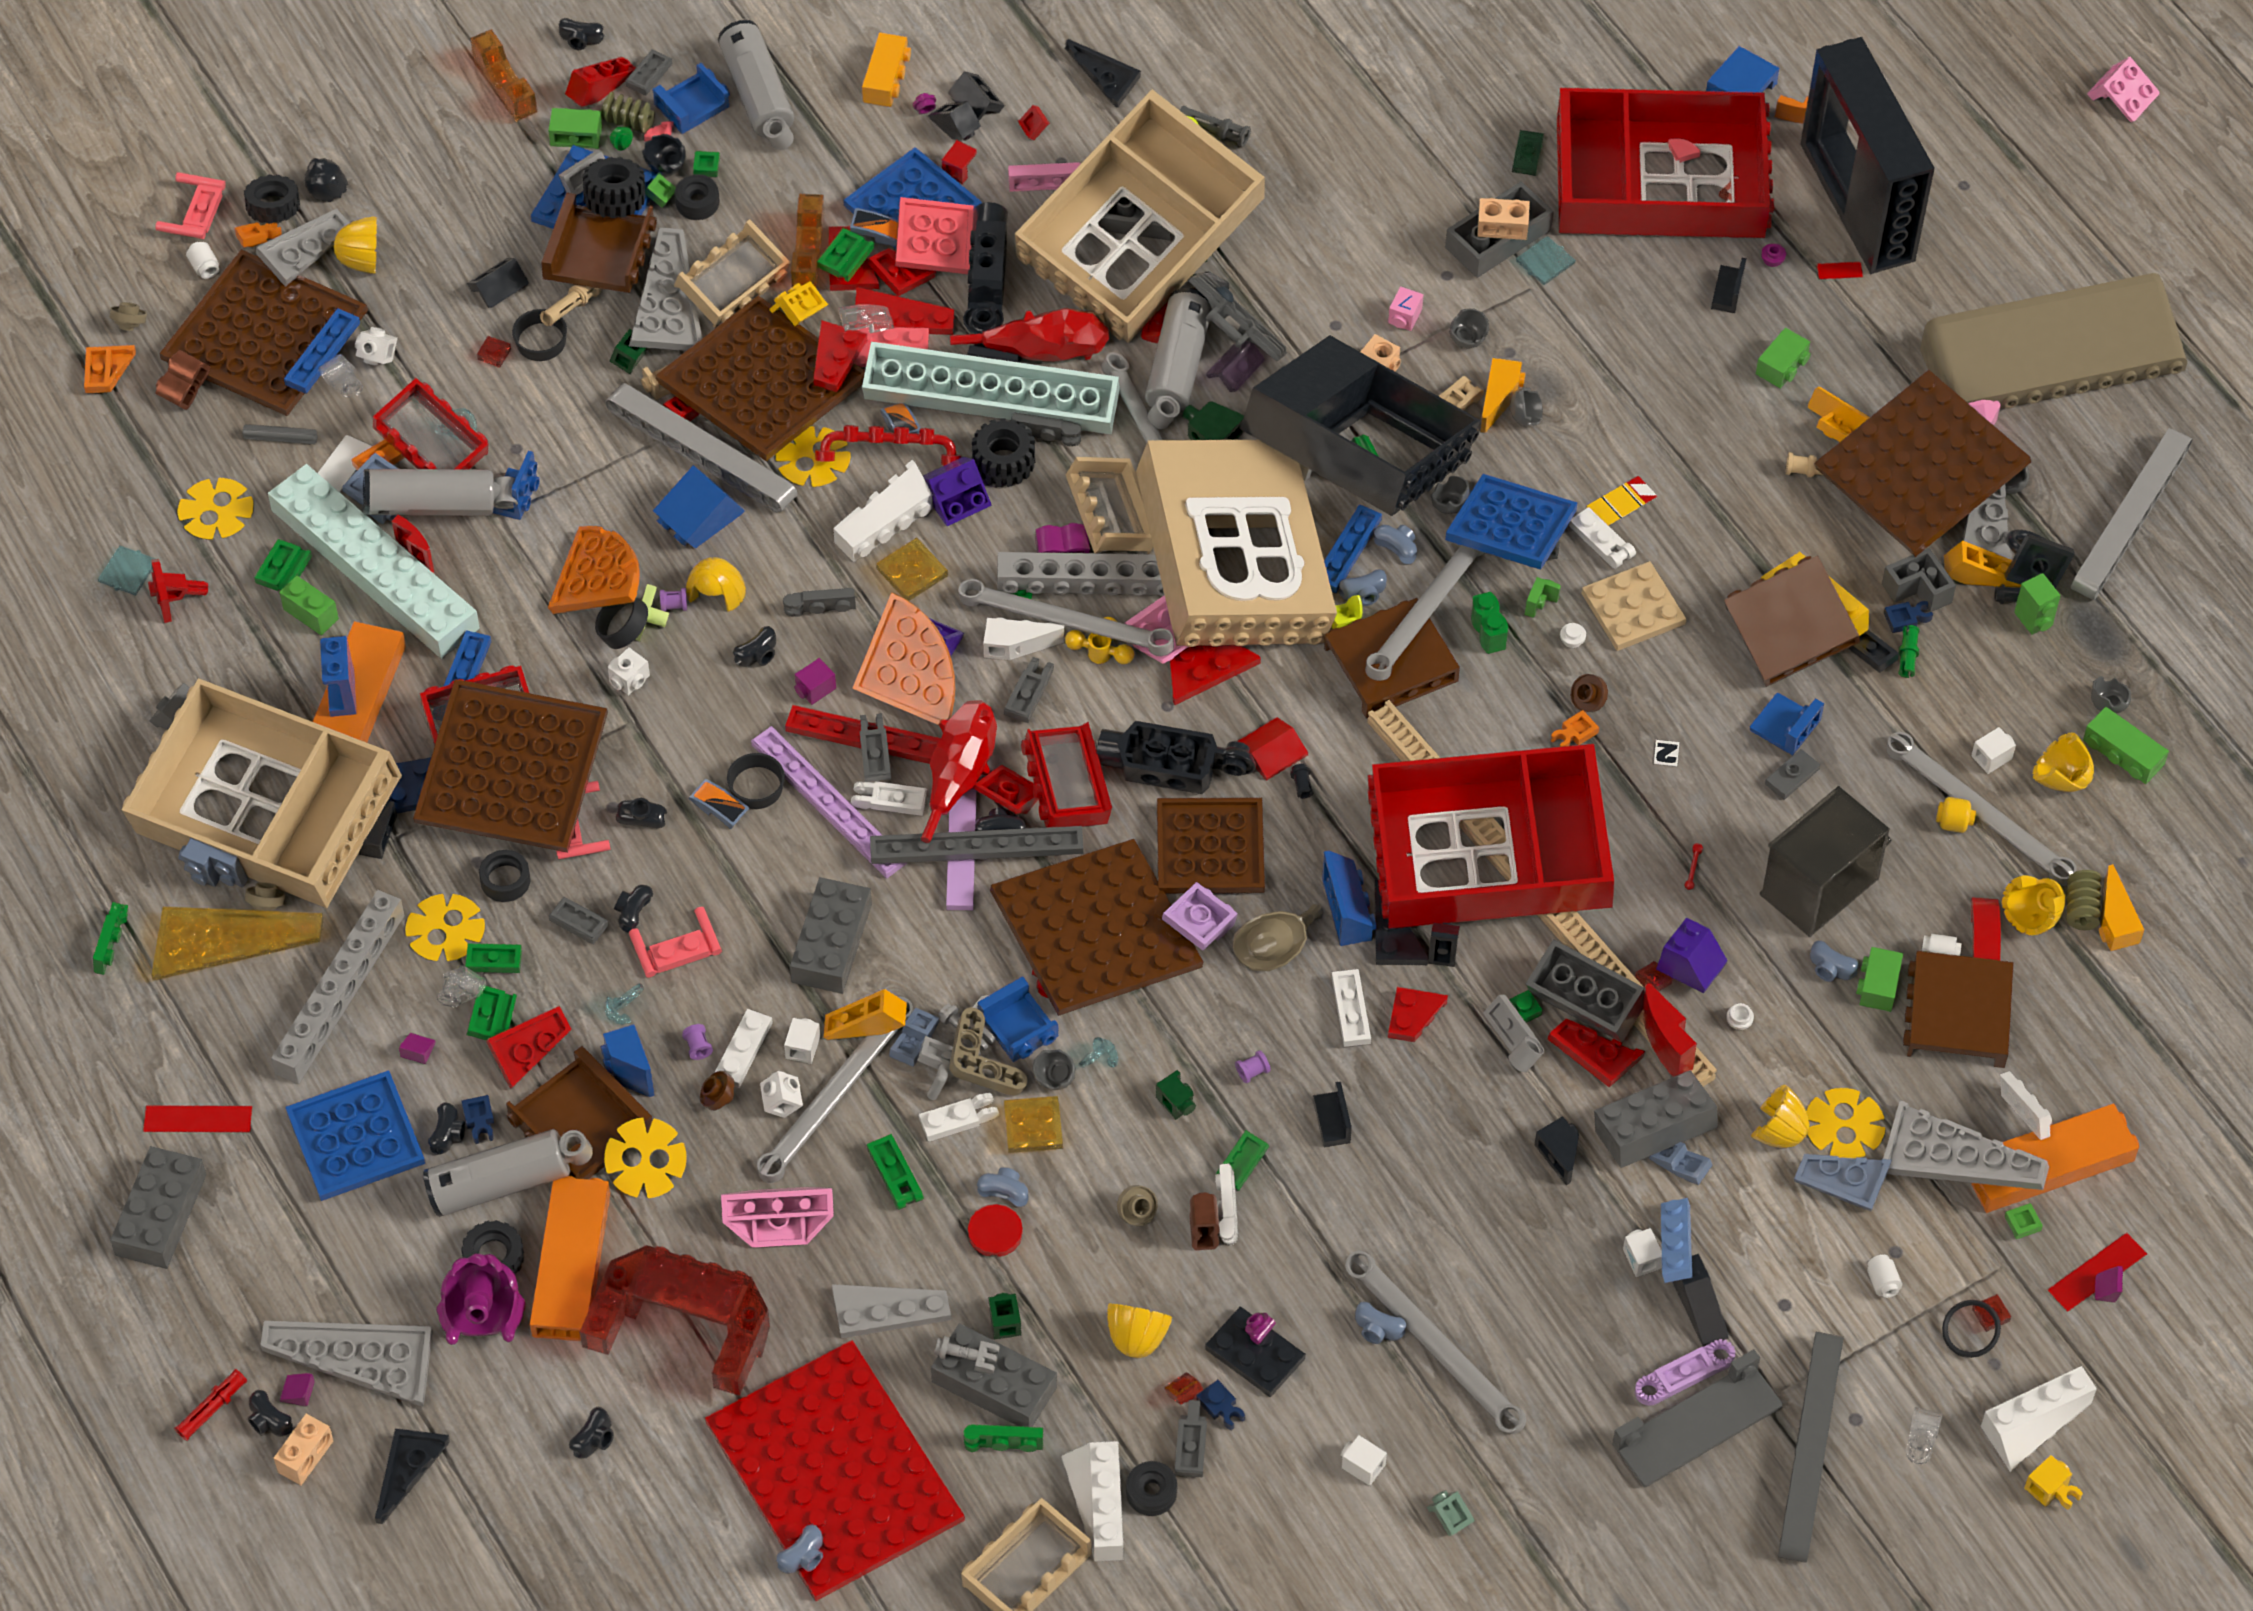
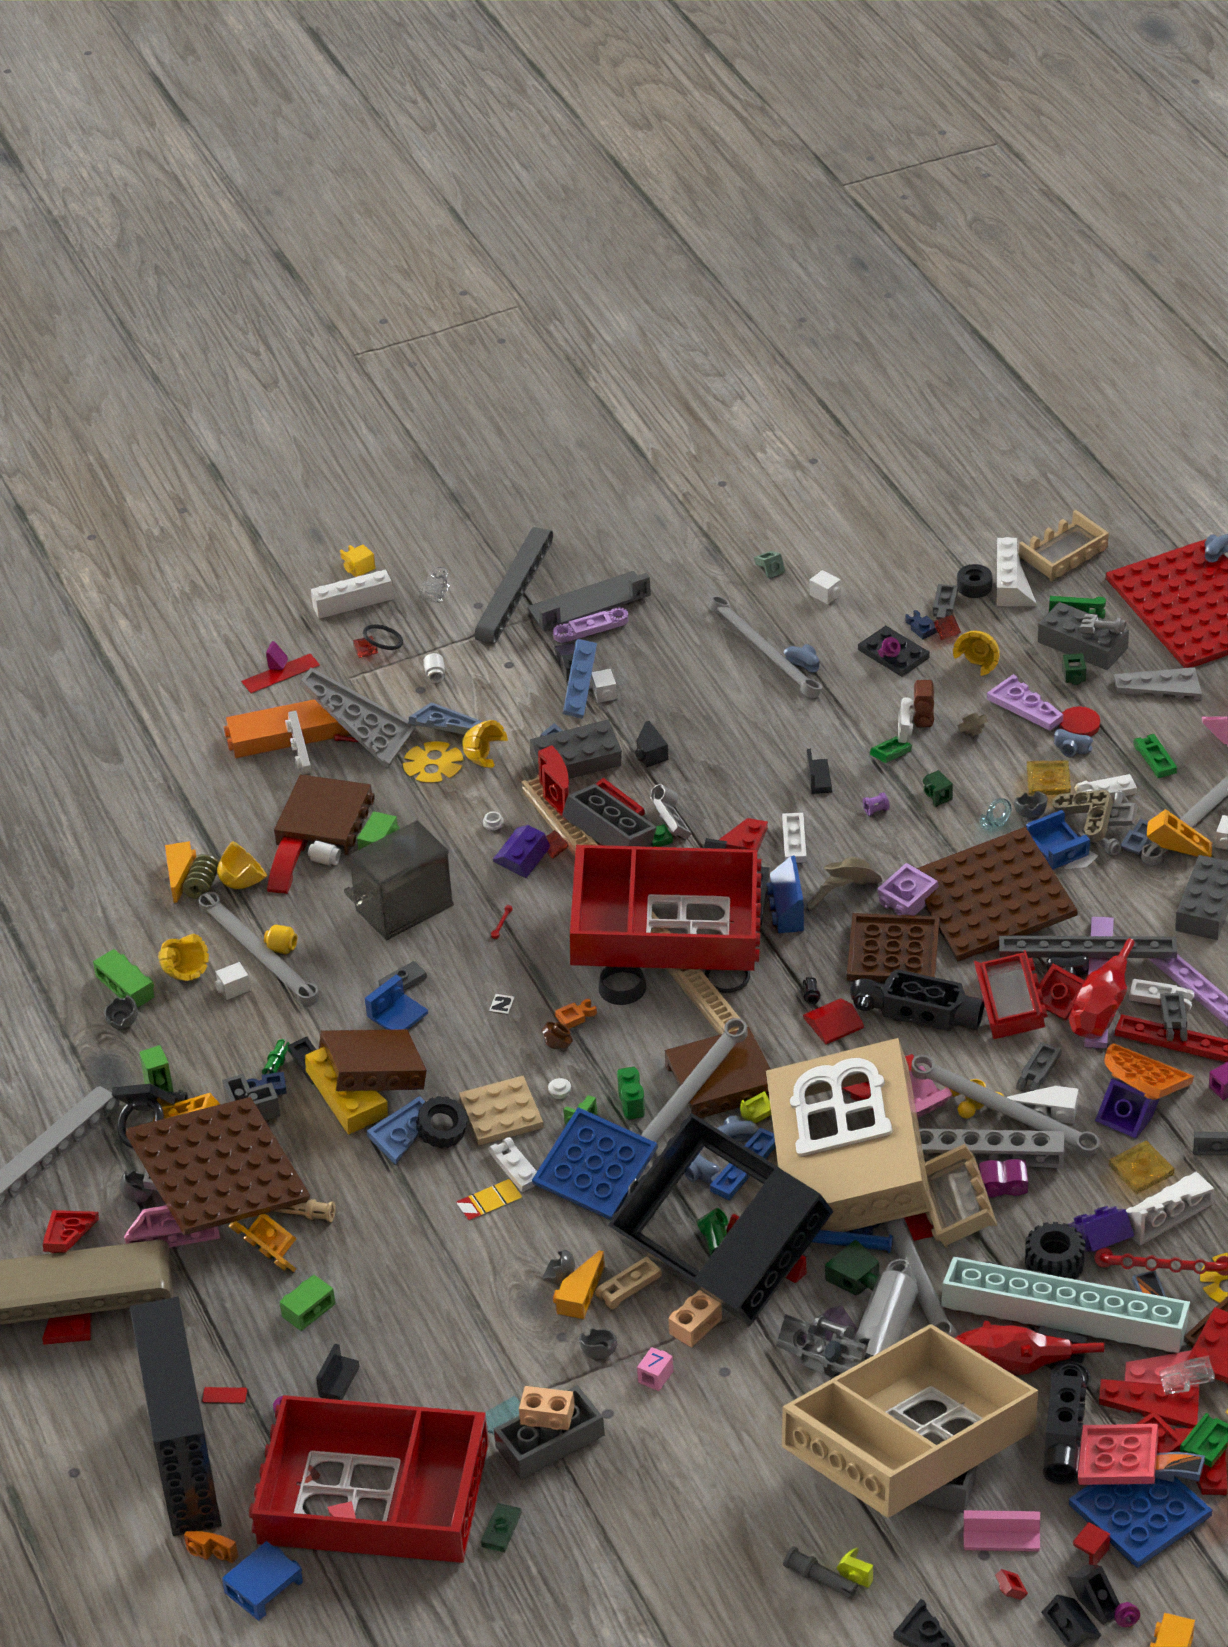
camera: 170 degrees left, 15 degrees down
(1071, 1253) = (1021, 701): none -> lavender wing
(1698, 584) = (445, 1106): none -> black tyre
(1742, 566) = (397, 1131): none -> medium blue wing
(2068, 416) = (67, 1228): none -> red wing

